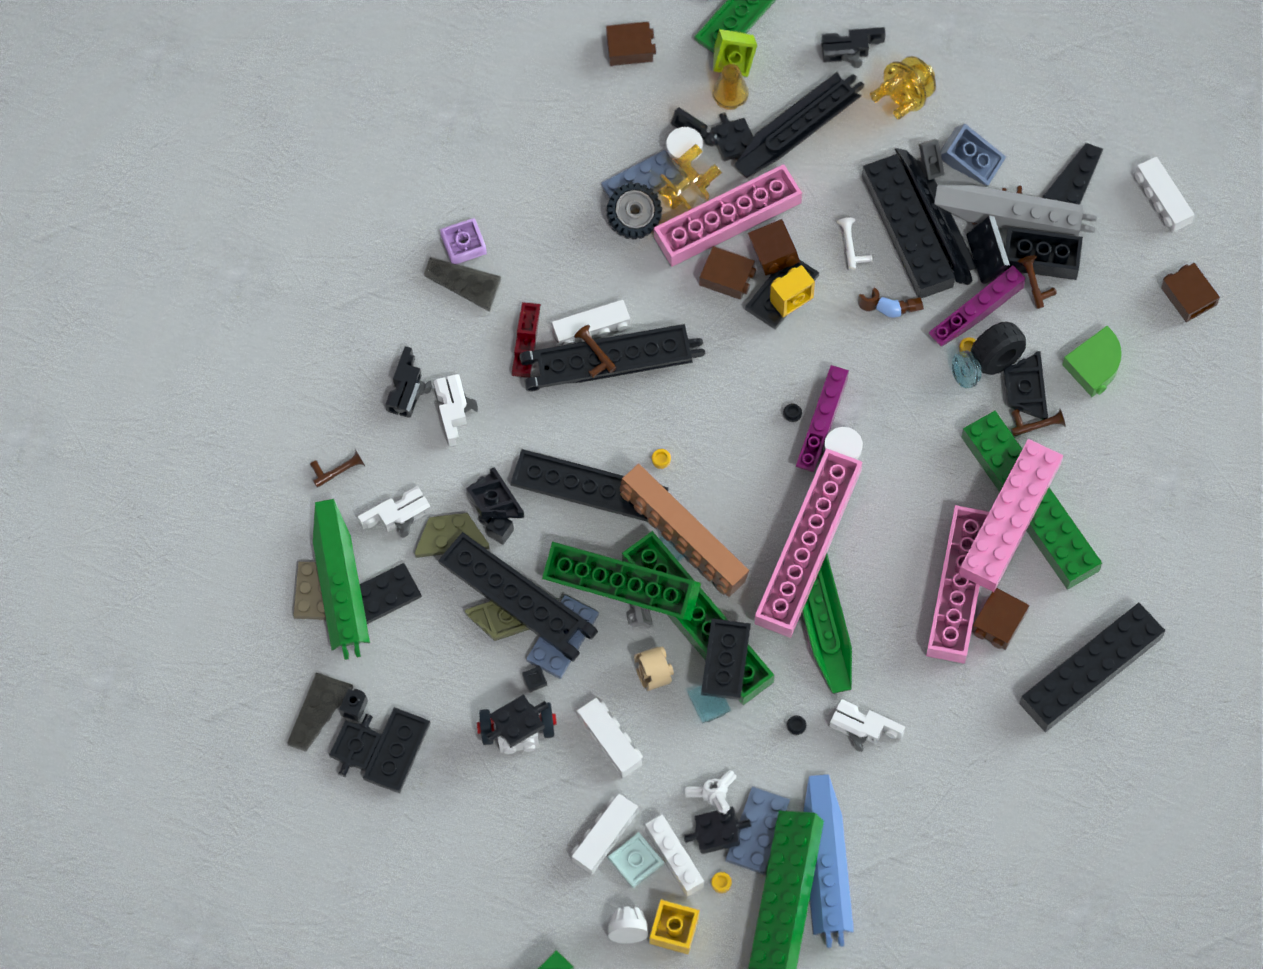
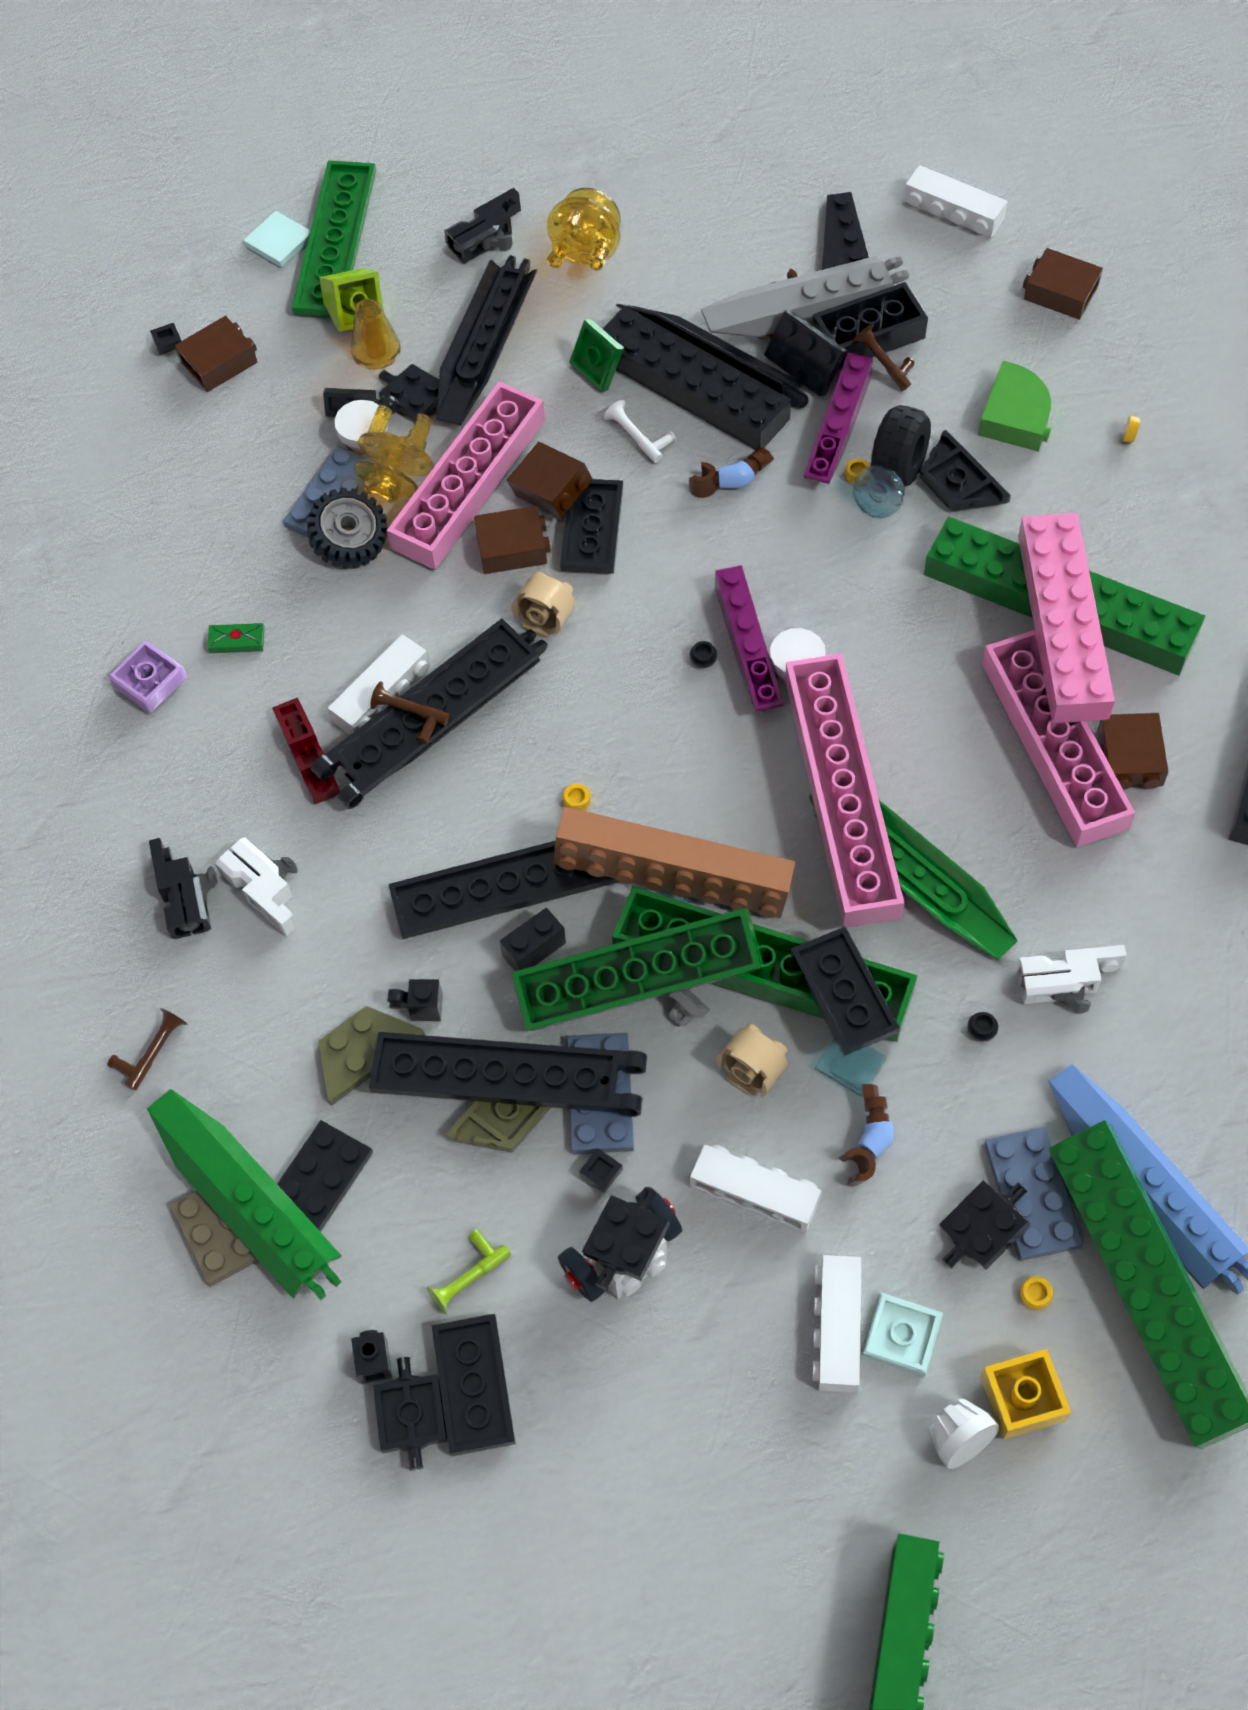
camera: 30 degrees left, 5 degrees down
(320, 703) = (321, 1387): clear smoke wing -> none
(397, 514) = (272, 1061): white plate -> none
(448, 691) = (492, 1259): none -> lime piece
(467, 282) = (182, 723): clear smoke wing -> none
(493, 497) = (393, 964): black wing -> none
(529, 244) = (236, 638): none -> green tile
(579, 529) = (533, 941): none -> black brick
(606, 15) = (165, 338): none -> black plate
(674, 855) = (953, 1295): white brick -> none
(694, 749) = (876, 1137): none -> reddish brown piece
(714, 791) = (944, 1176): white bush -> none
(717, 328) = (544, 604): none -> tan brick
(792, 290) = (609, 510): yellow brick -> none
(857, 178) = (596, 355): none -> green plate
(930, 159) = (668, 297): dark grey slope -> none
(972, 155) = (707, 268): sand blue slope -> none
(1021, 429) = (1024, 489): reddish brown piece -> none
(1156, 416) = (1131, 429): none -> yellow tile

